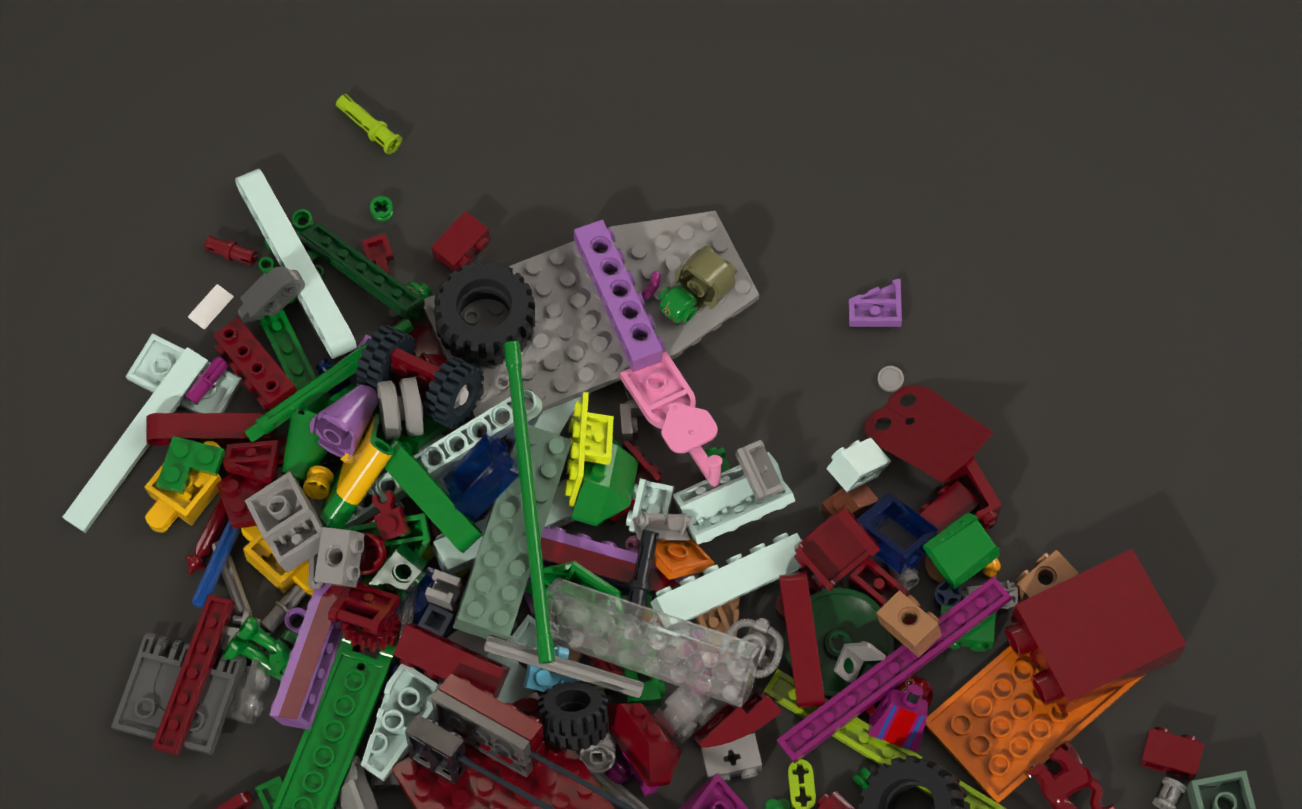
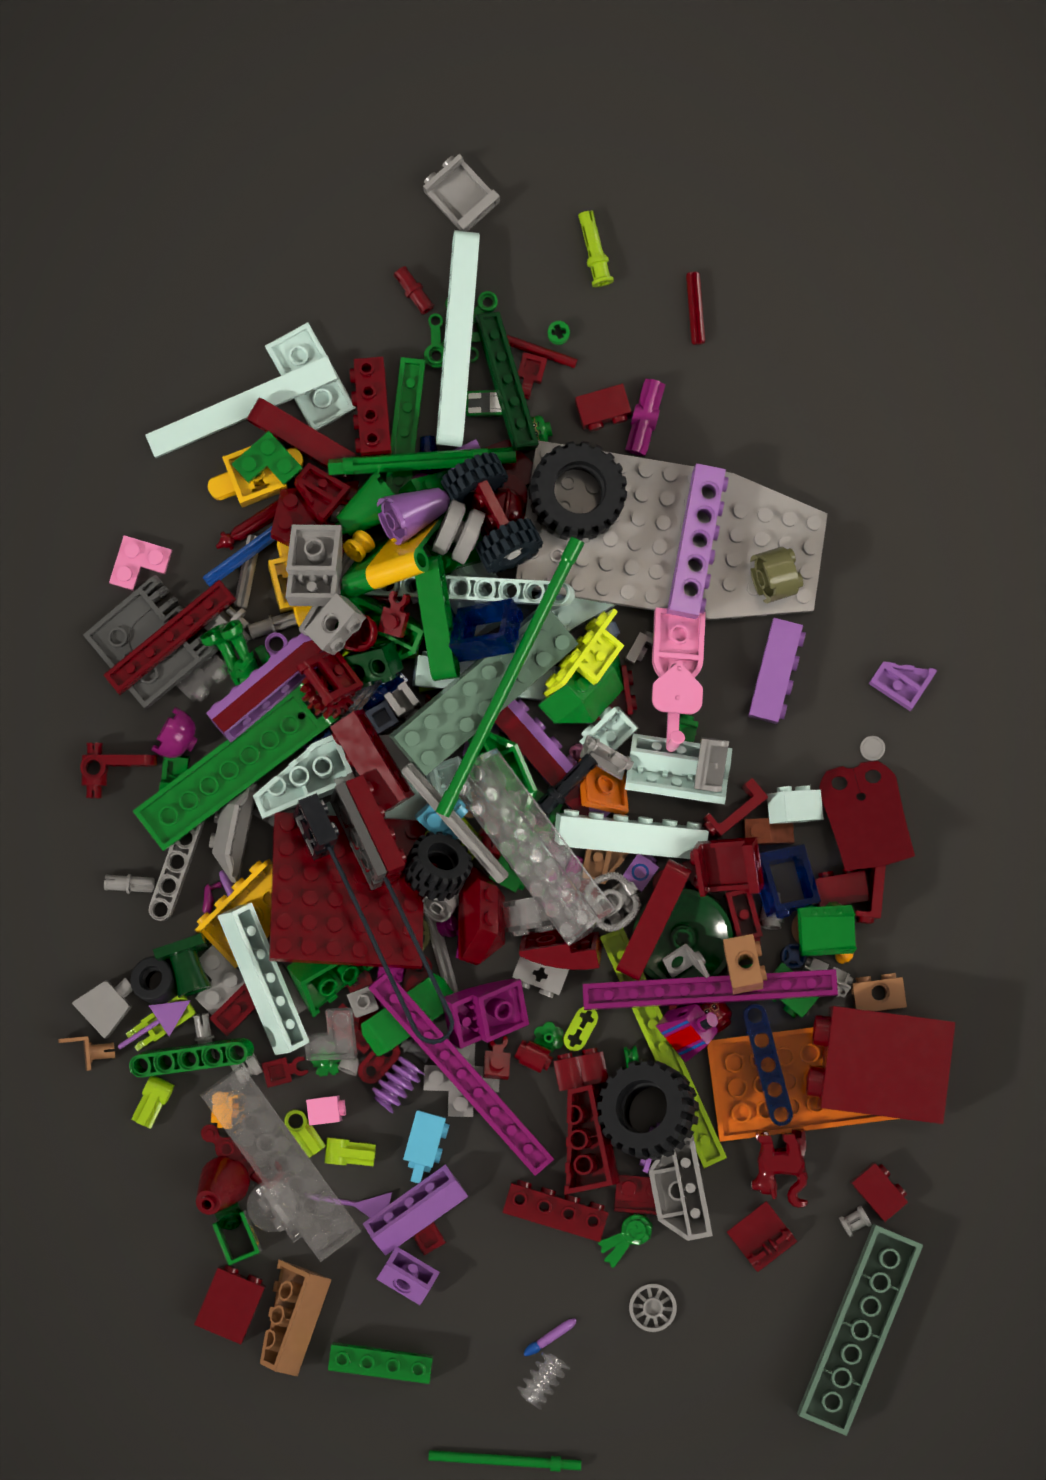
camera: 30 degrees right, 15 degrees up
(118, 627) = (134, 555): none -> bright pink plate
(206, 380) = (325, 394): magenta axle -> none
(210, 306) = (369, 327): white sticker -> none
(221, 149) = (460, 193): none -> light grey panel
(255, 760) = (176, 735): none -> magenta cylinder
(270, 294) = (419, 357): dark grey piece -> none
(356, 303) = (483, 403): none -> slope
(389, 230) = (542, 352): none -> dark red bar
(488, 118) = (695, 308): none -> dark red axle
(503, 228) = (645, 417): none -> magenta piece
(653, 285) = (730, 550): magenta piece -> none
(678, 304) = (739, 580): green head -> none
(761, 364) = (775, 671): none -> medium lavender brick
(761, 605) = (641, 871): none -> medium lavender brick
(816, 477) = (757, 797): none -> dark red panel
(998, 715) = (776, 1074): none -> clear blue beam

